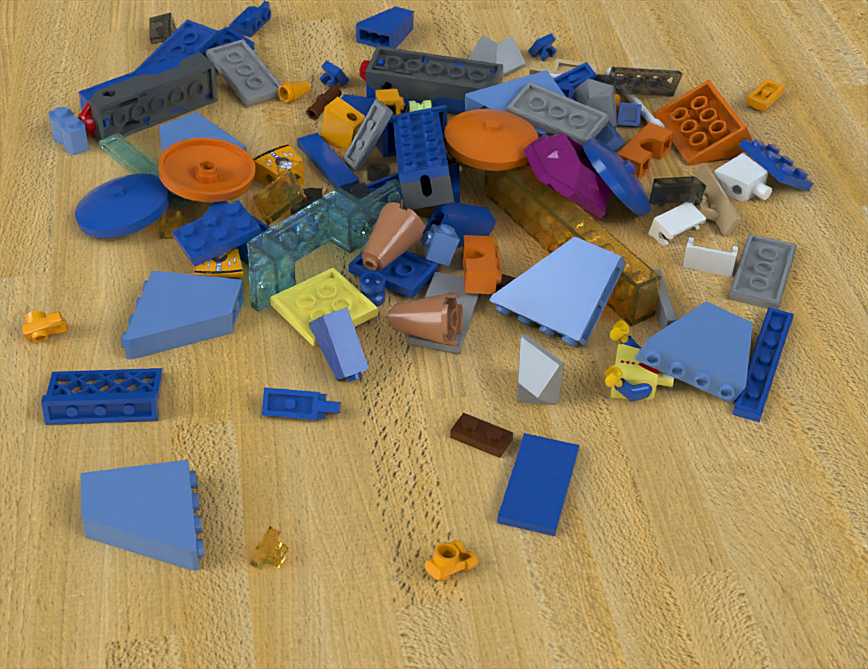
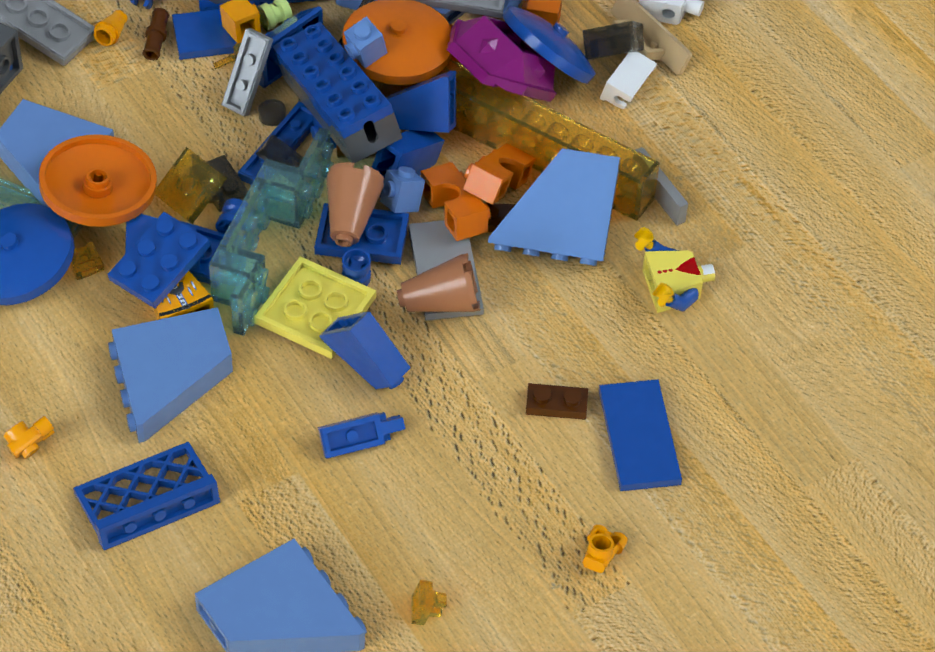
camera: 25 degrees left, 10 degrees up
(276, 162) = (163, 140): light orange torso -> none
(327, 161) = (207, 116): blue tile -> none
(340, 123) = (204, 64): light orange torso -> none
(456, 125) = (365, 42): none -> medium blue brick
(489, 187) = (427, 104): none -> blue slope
(516, 250) = (497, 171): none -> orange arch
(538, 374) = (582, 315): slope -> none
(704, 350) = (732, 231): medium blue slope -> none
(709, 259) = (680, 113): white hinge -> none
(762, 272) = (737, 109): light grey tile -> none
(763, 364) = (786, 222): blue tile -> none

